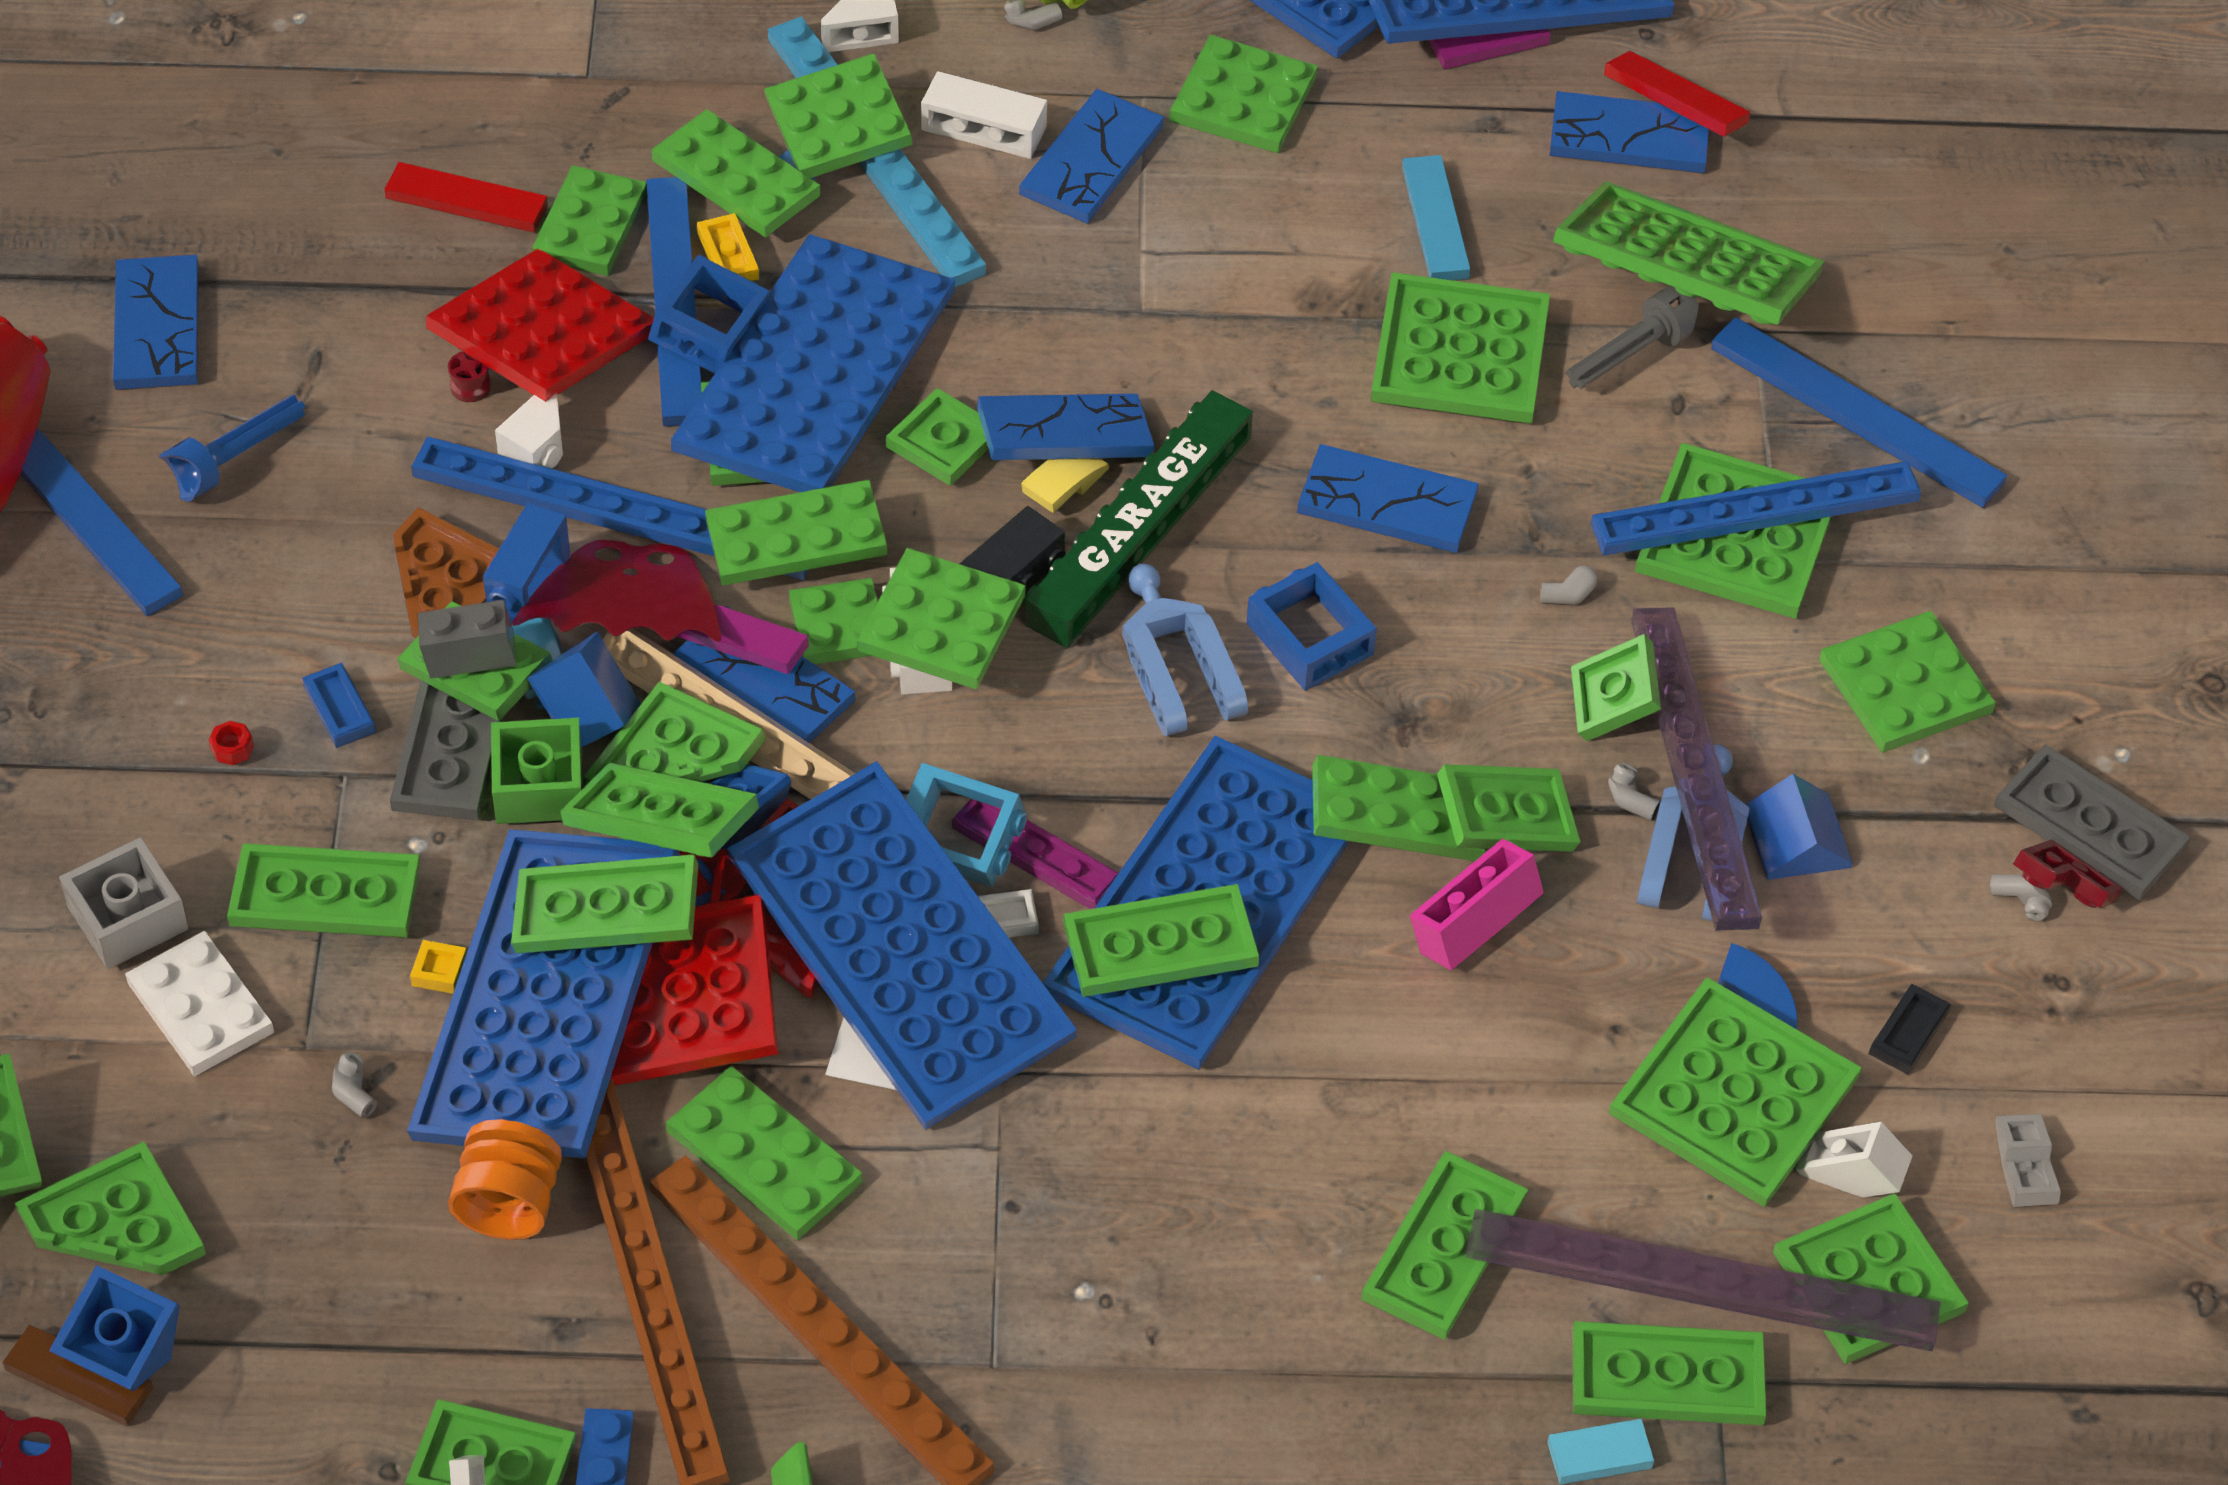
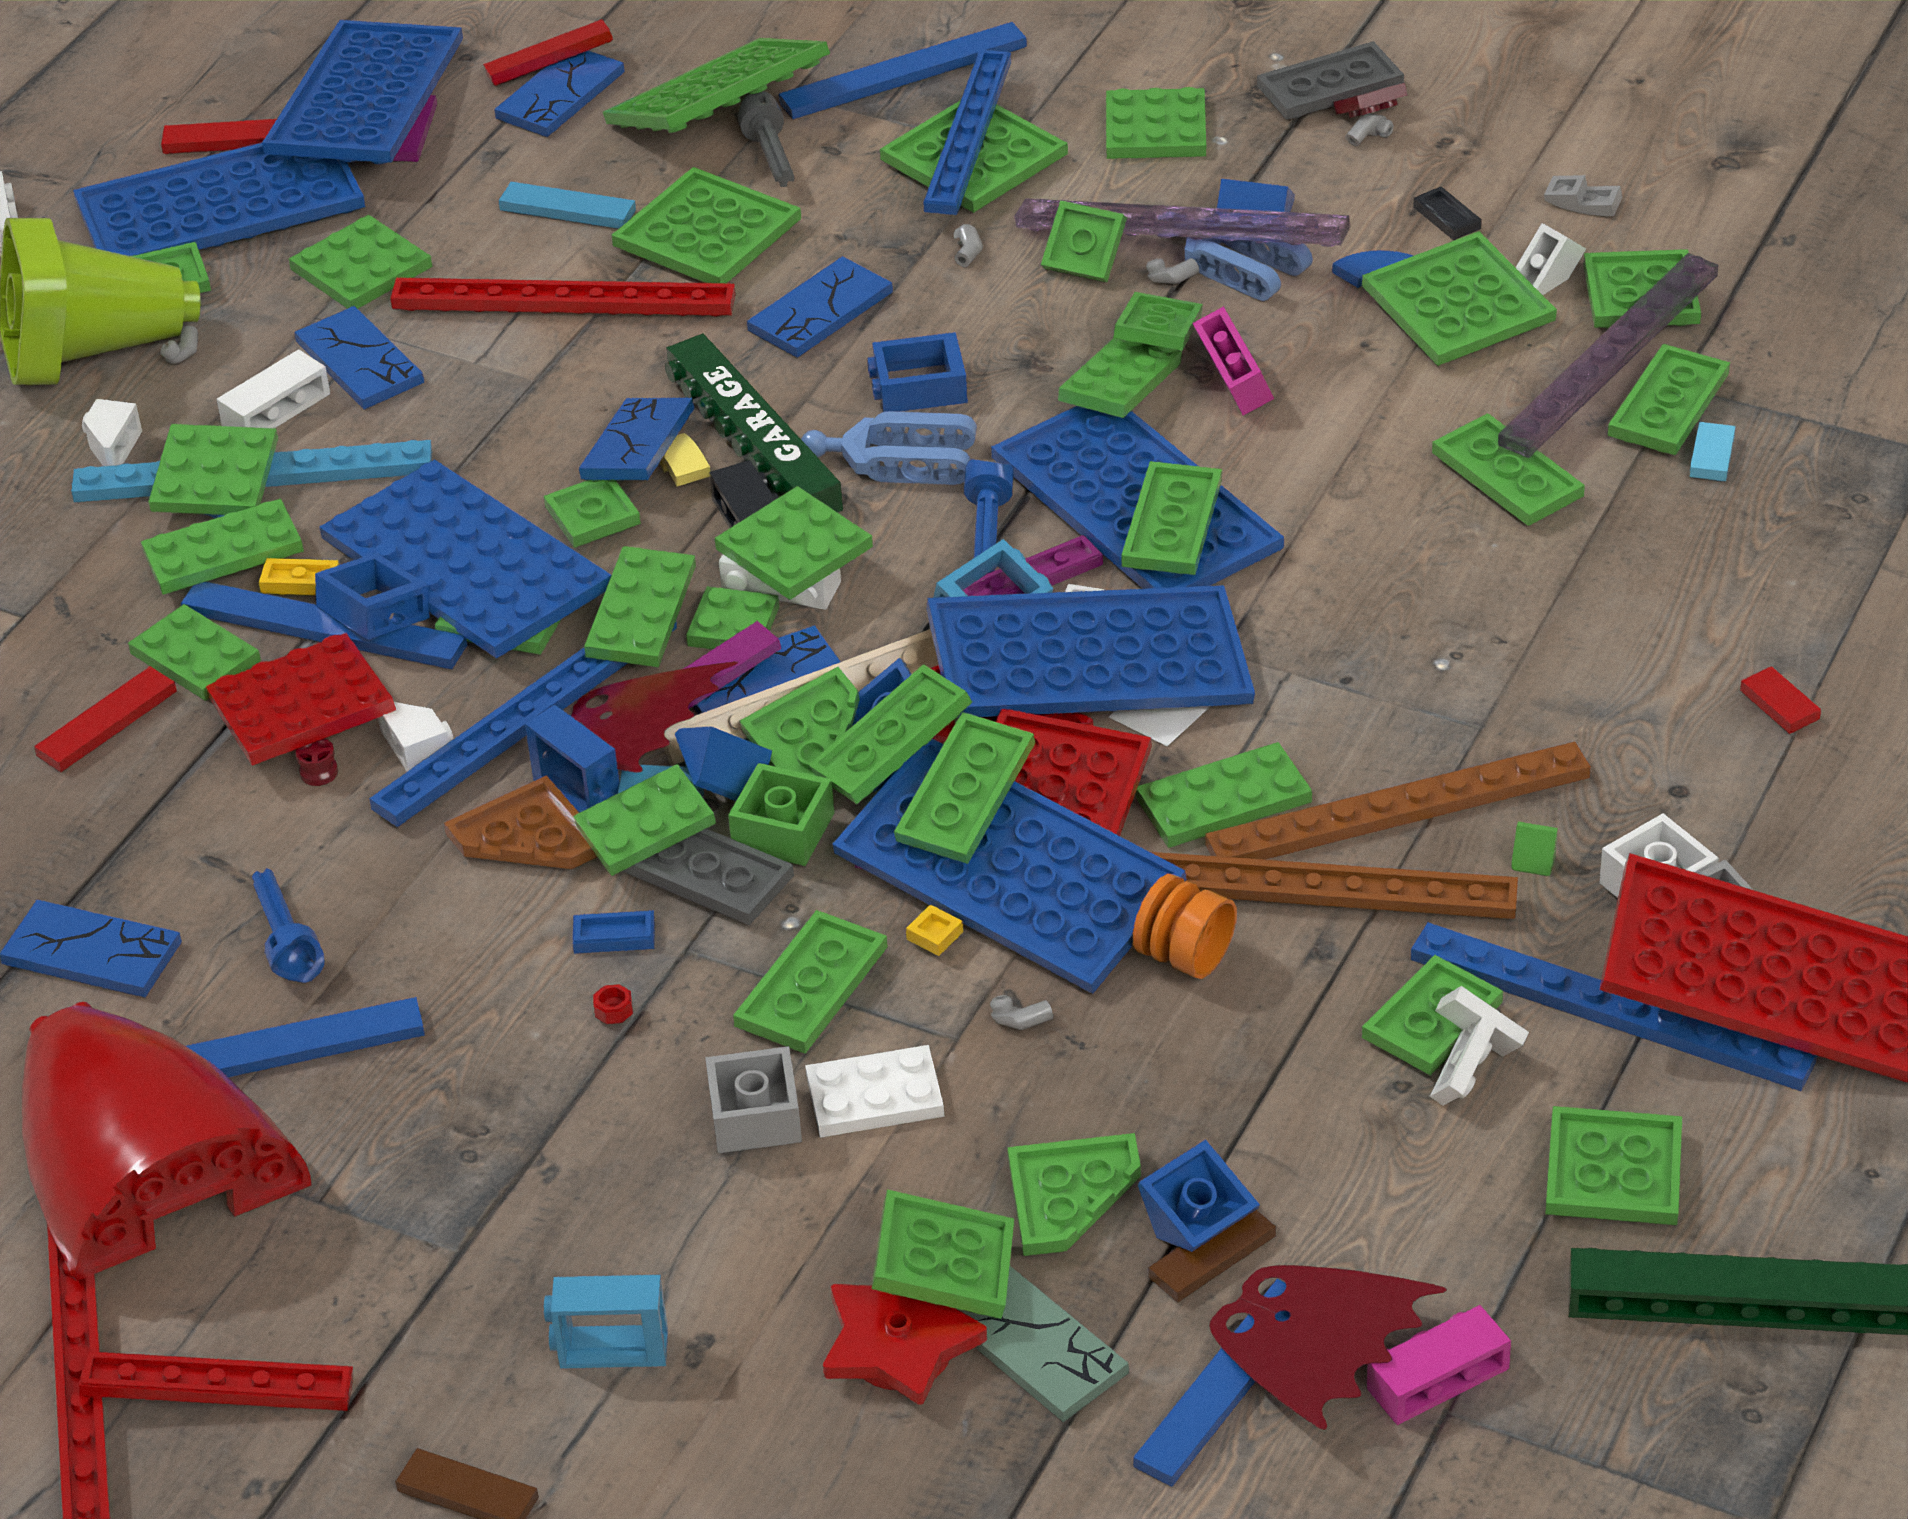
camera: 60 degrees left, 10 degrees down
(466, 639) = (644, 794): dark grey brick -> none
(1140, 757) = (987, 487): none -> blue piece
(1276, 279) = (563, 296): none -> red plate

